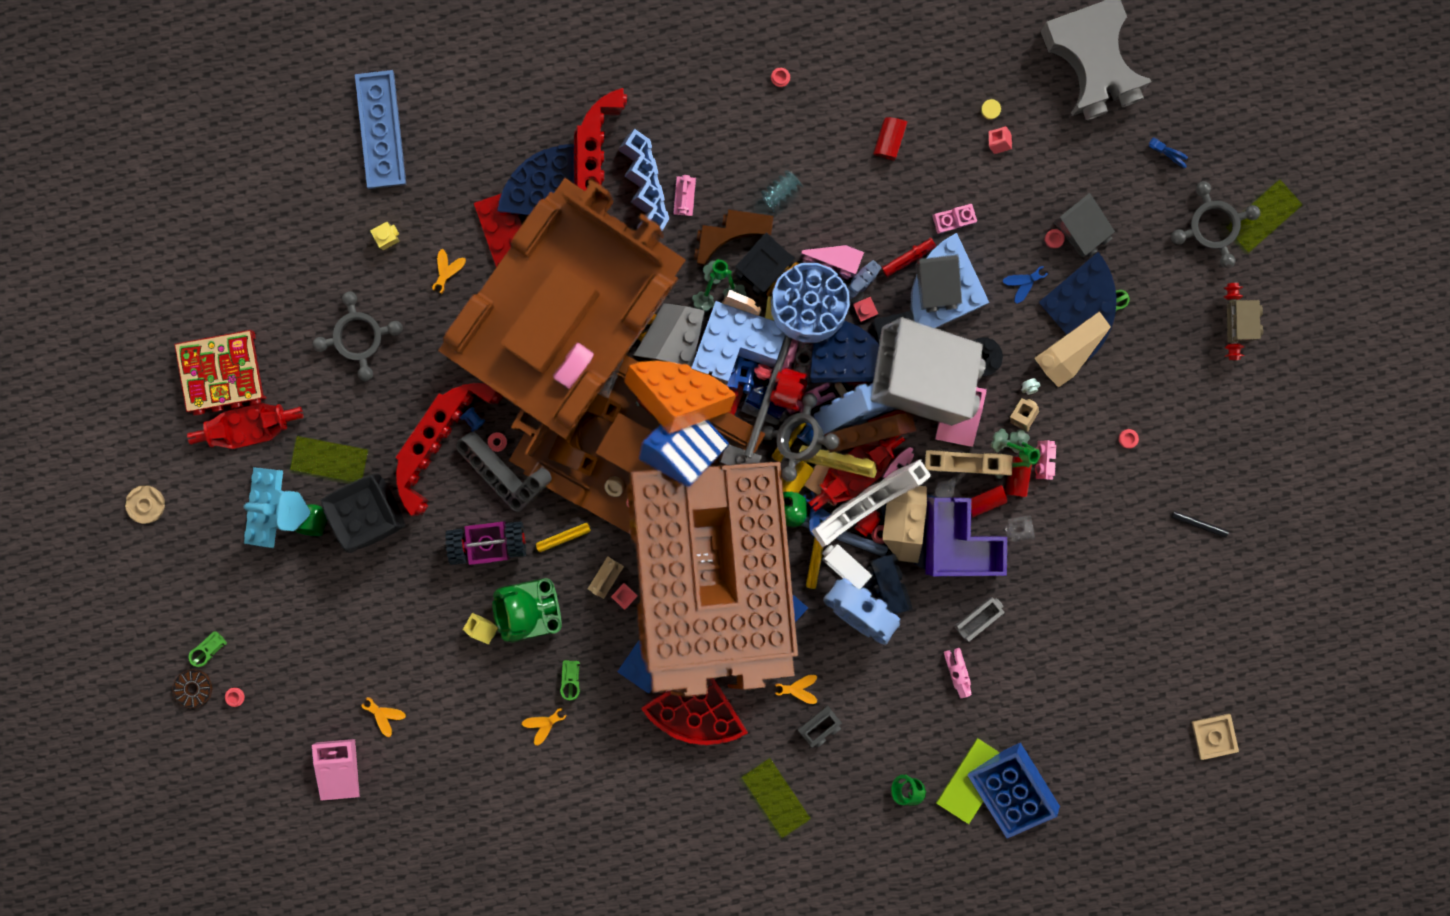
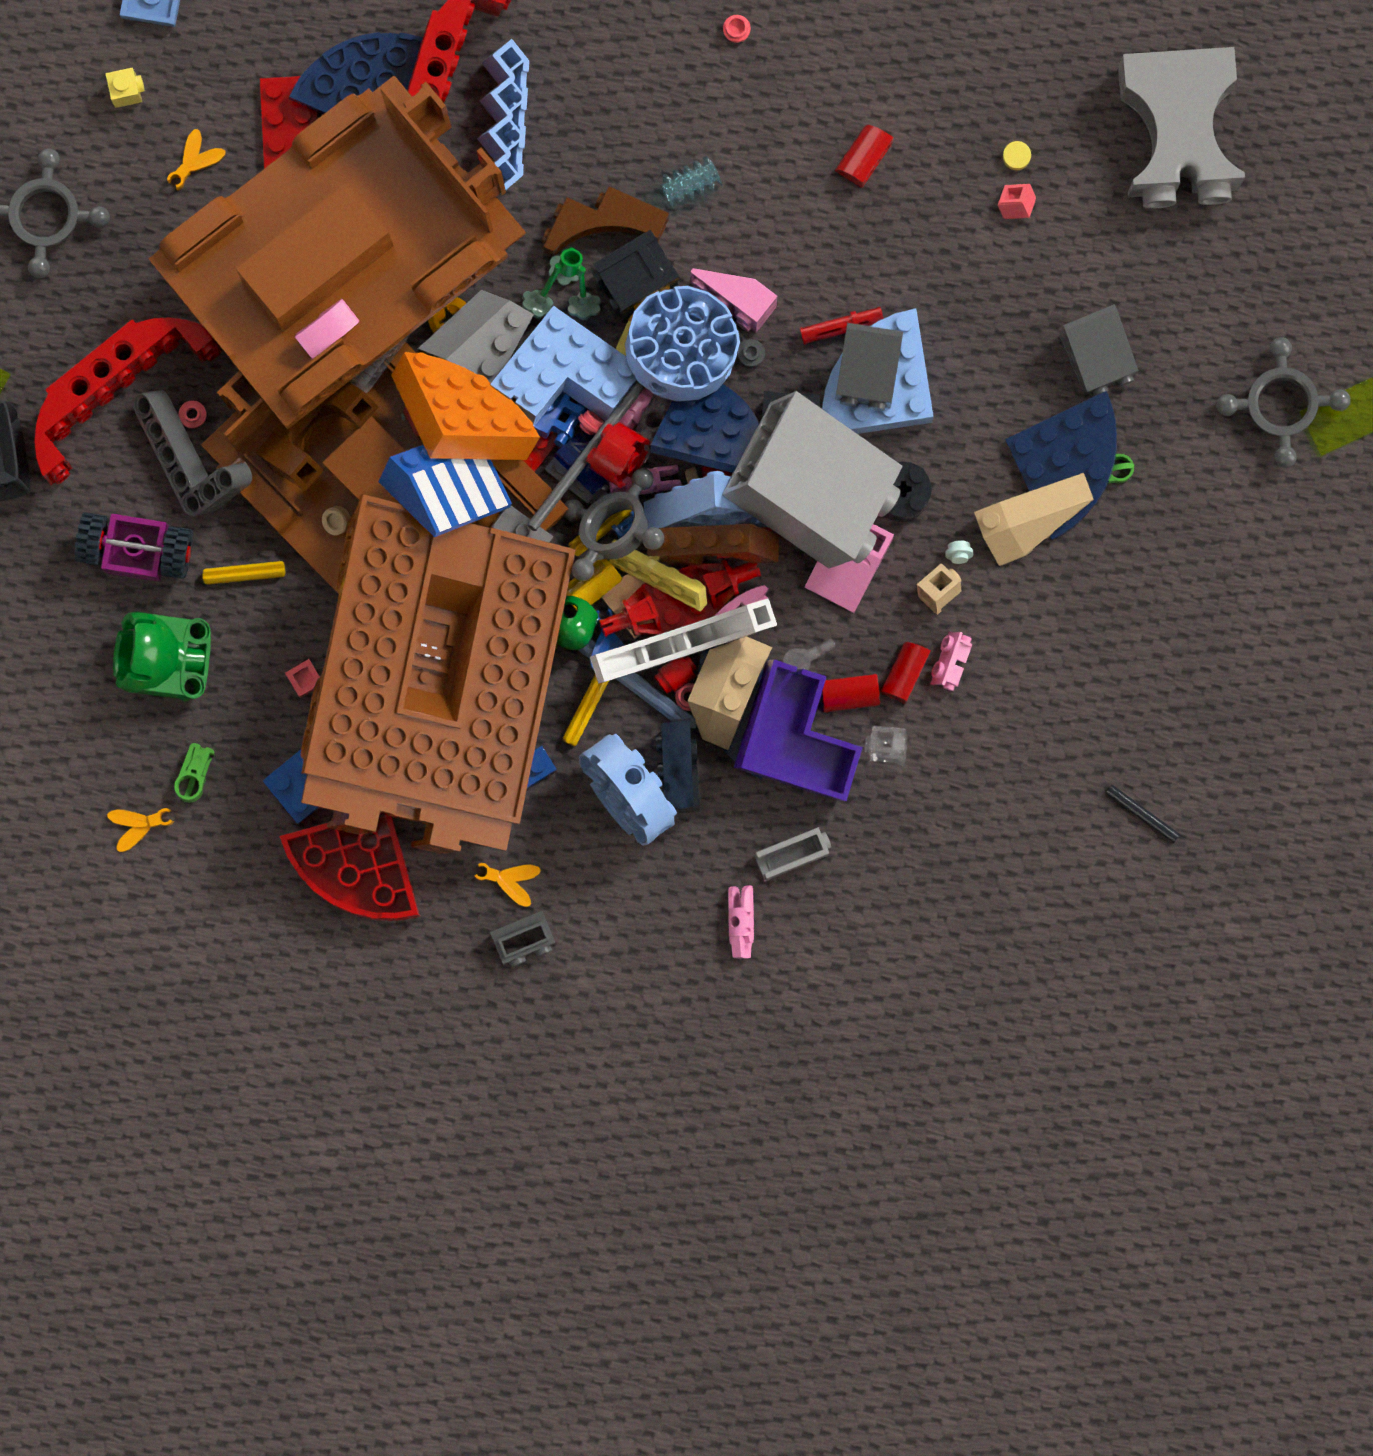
camera: 20 degrees right, 5 degrees down
(472, 419) = (168, 373): blue bush -> none
(480, 628) = (90, 663): light yellow brick -> none
(605, 577) = (286, 645): tan hinge -> none
(684, 195) = (555, 152): bright pink hinge -> none
(741, 302) = (588, 318): light nougat tile -> none
(776, 797) = (432, 1023): clear neon green piece -> none
(845, 565) = (624, 720): white window -> none
(863, 279) = (768, 336): sand blue hinge -> none
(865, 309) = (760, 379): coral plate -> none
(917, 796) = (632, 1071): green helmet -> none
(954, 218) = (922, 291): bright pink slope -> none
(960, 794) = (716, 1080): lime tile -> none
(969, 462) = (862, 636): tan arch -> none
(1014, 791) = (769, 1109): blue slope -> none
(1017, 443) = (919, 626): plant -> none
(1025, 281) = (996, 407): blue piece -> none
(1054, 238) = (1053, 358): coral tile -> none
(1128, 438) = (1076, 665): coral tile -> none
(1173, 154) = (1253, 289): blue piece -> none
(1215, 736) = (1078, 1118): tan tile -> none
(1242, 321) = (1282, 545): dark tan brick -> none

